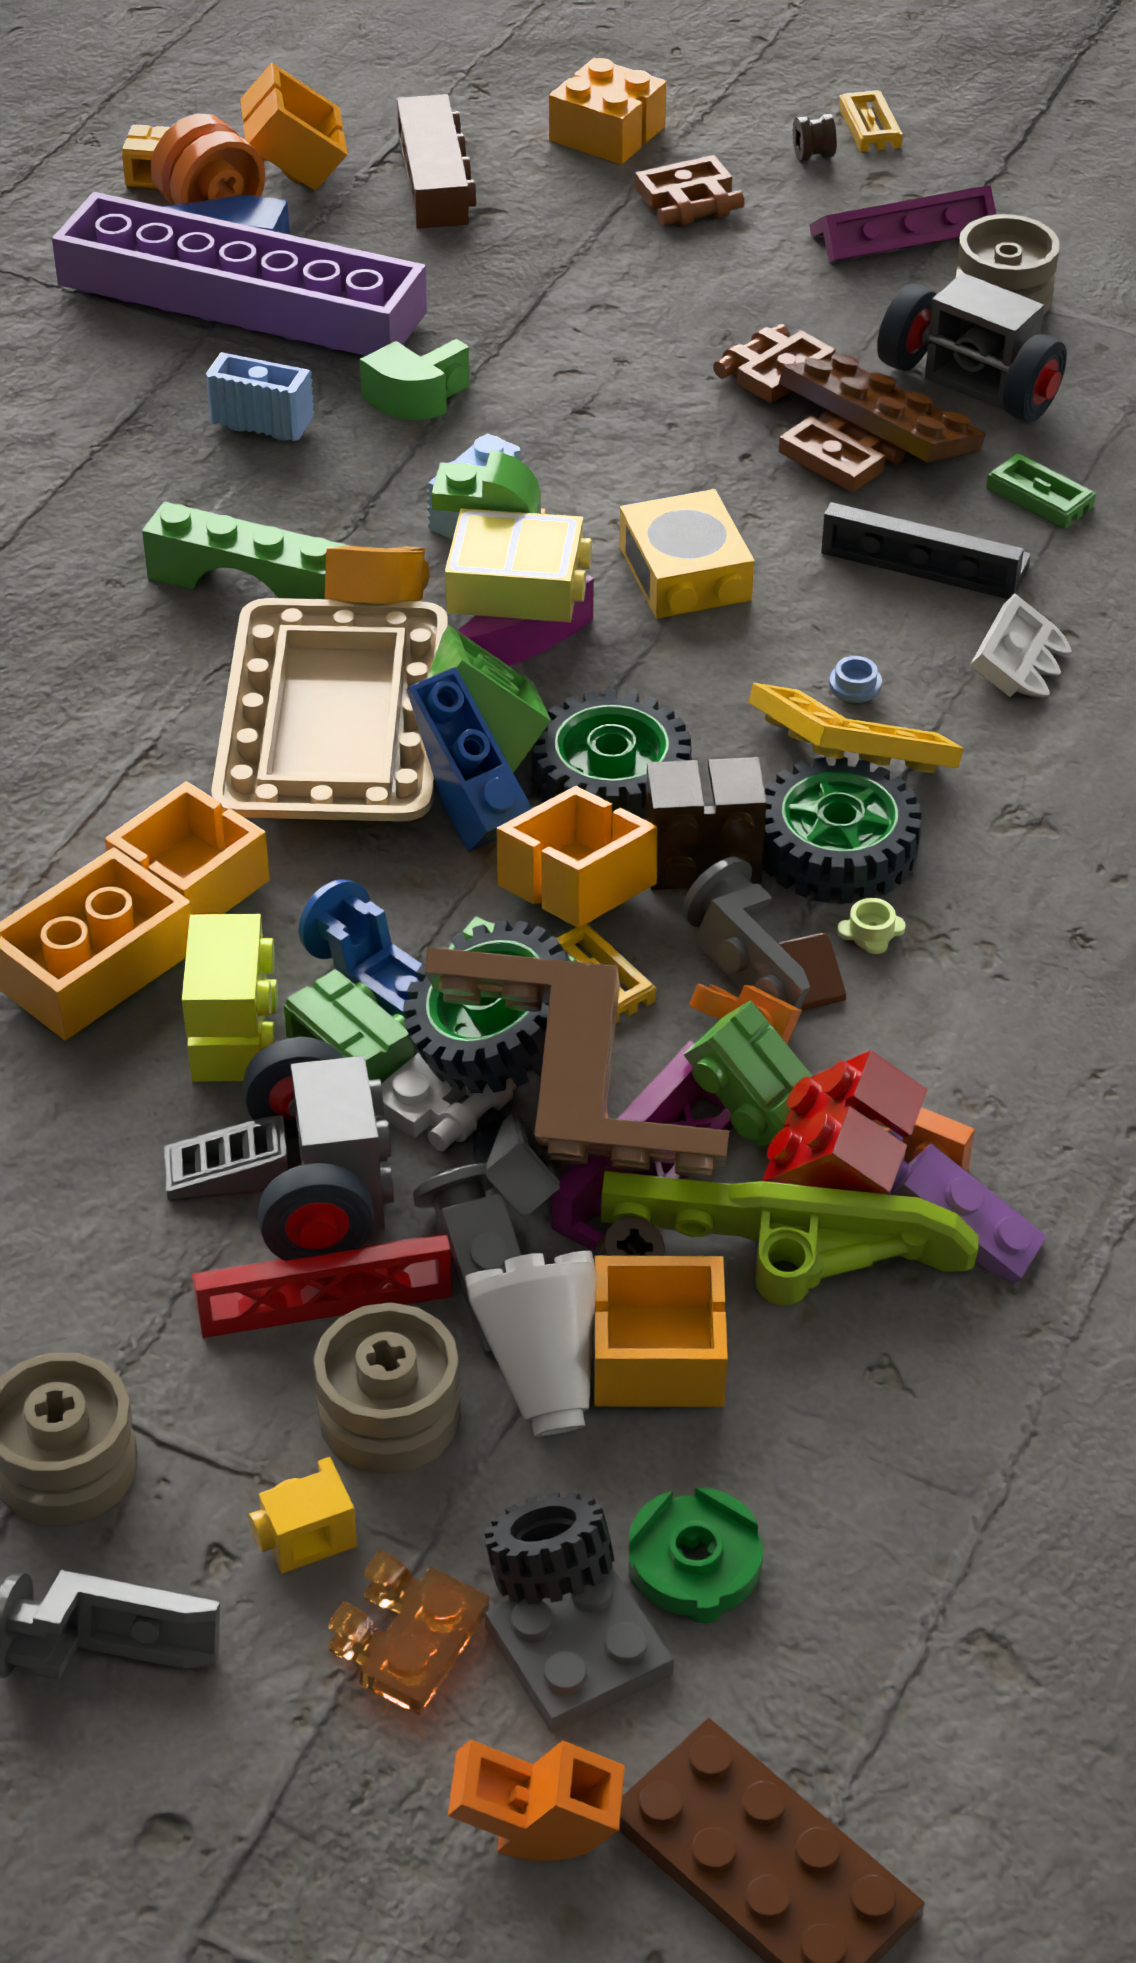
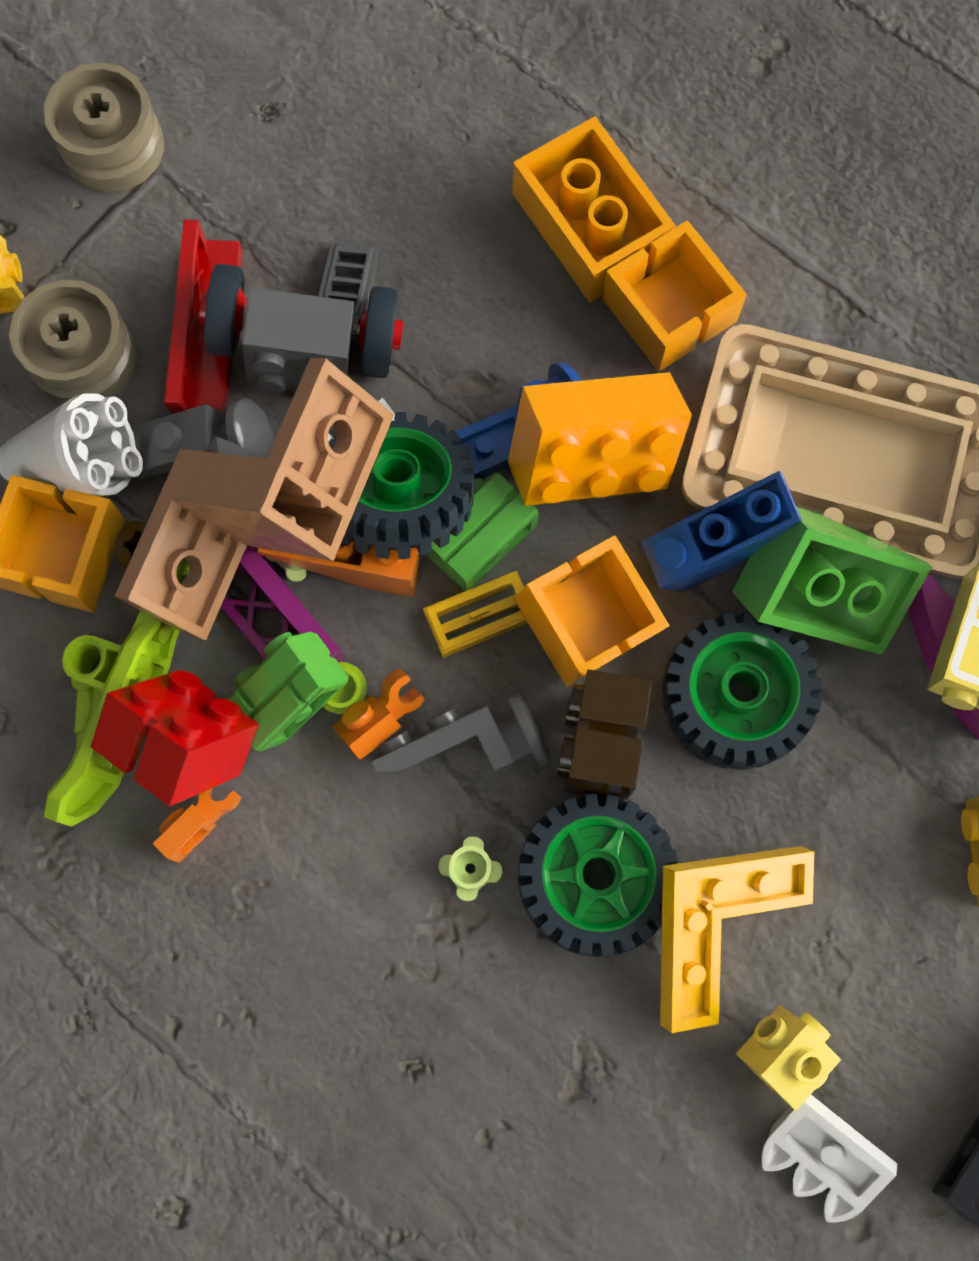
camera: 105 degrees right, 30 degrees up
(227, 994) = (490, 293): neon yellow piece -> none
(351, 1022) = (450, 388): bright green brick -> none
(394, 861) = (597, 437): none -> light orange brick
(821, 968) = (423, 792): reddish brown slope -> none
(855, 680) = (815, 966): medium blue plate -> none
(945, 672) = (789, 1055): none -> light yellow brick
(1005, 1237) = (104, 831): medium lavender piece -> none

